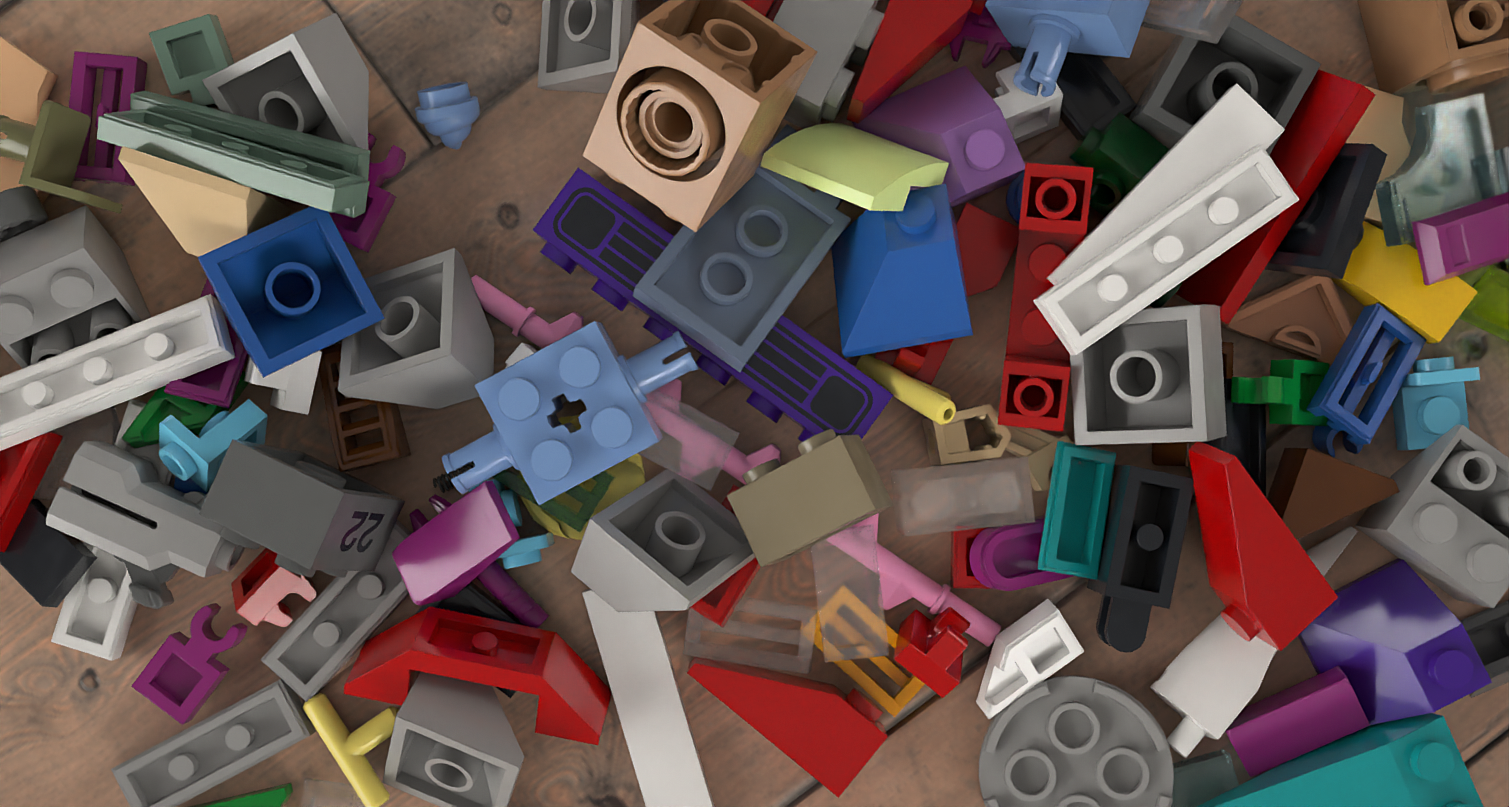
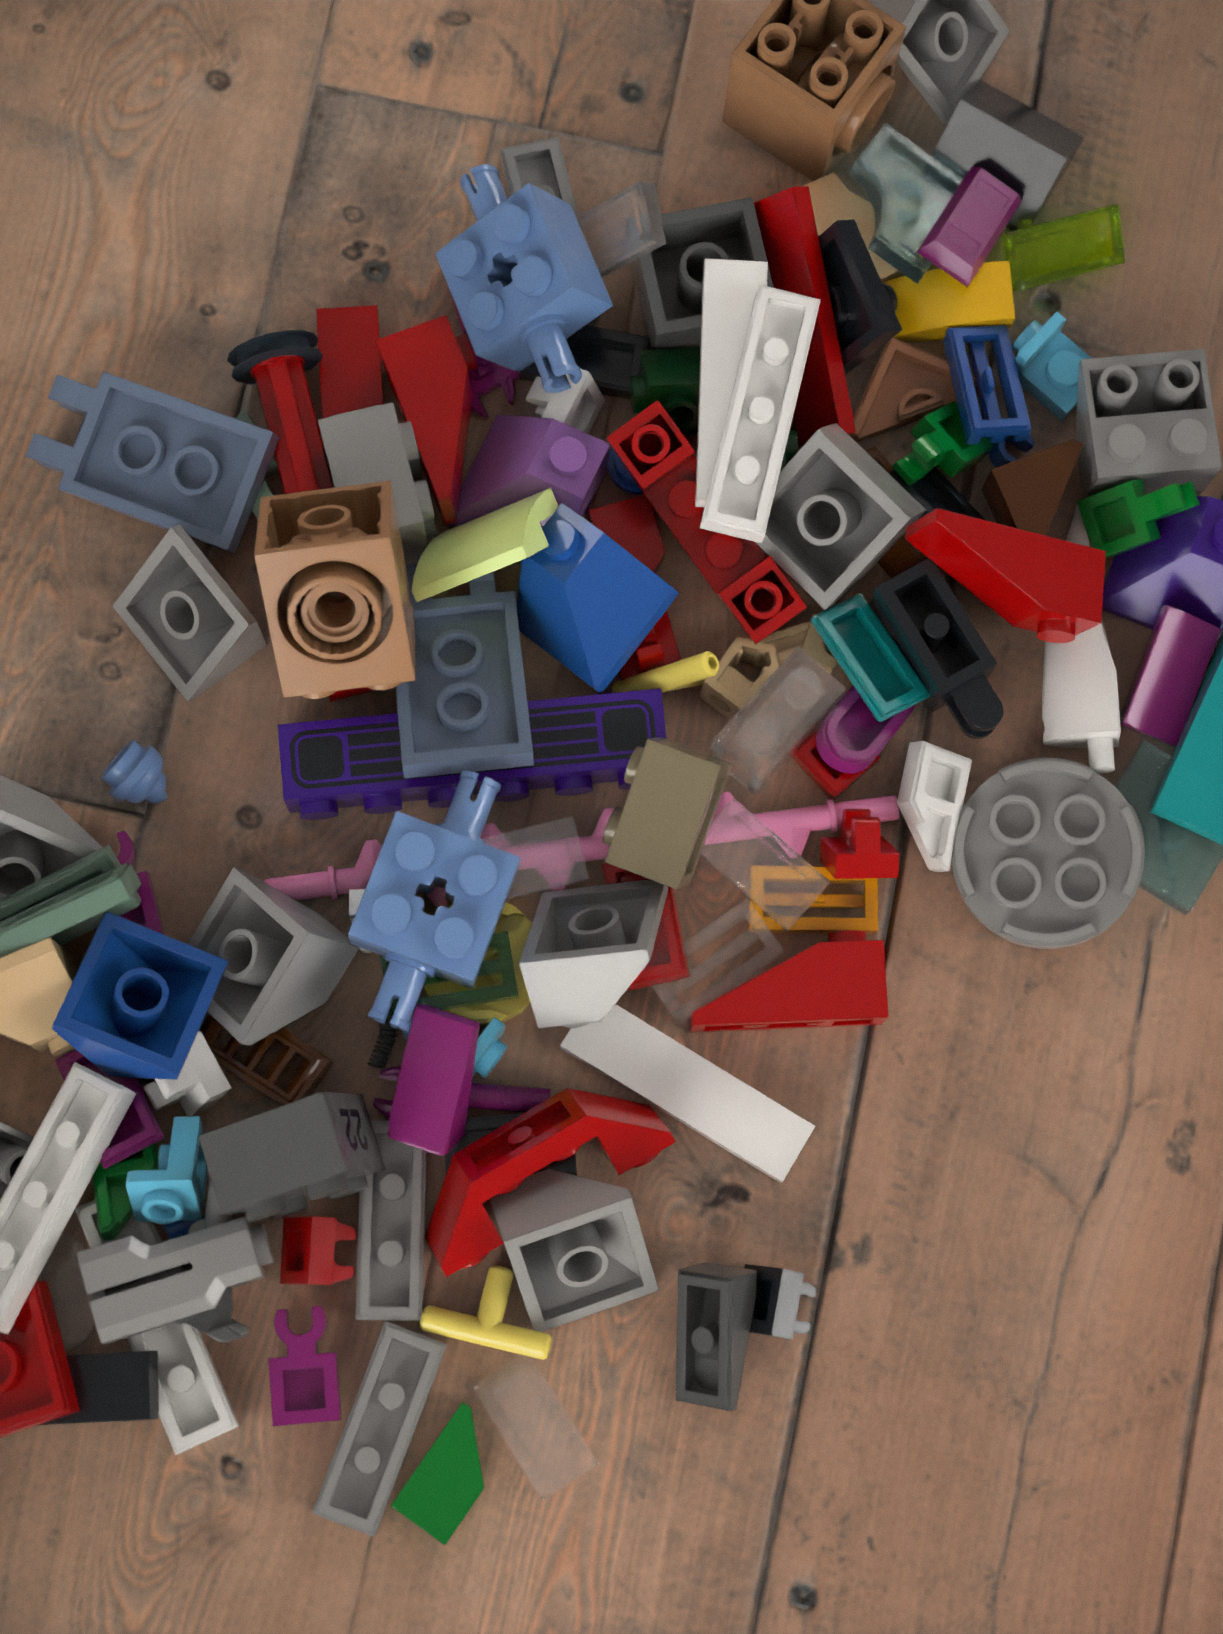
camera: 45 degrees left, 10 degrees down
(1381, 576) = (1127, 515): none -> green plate

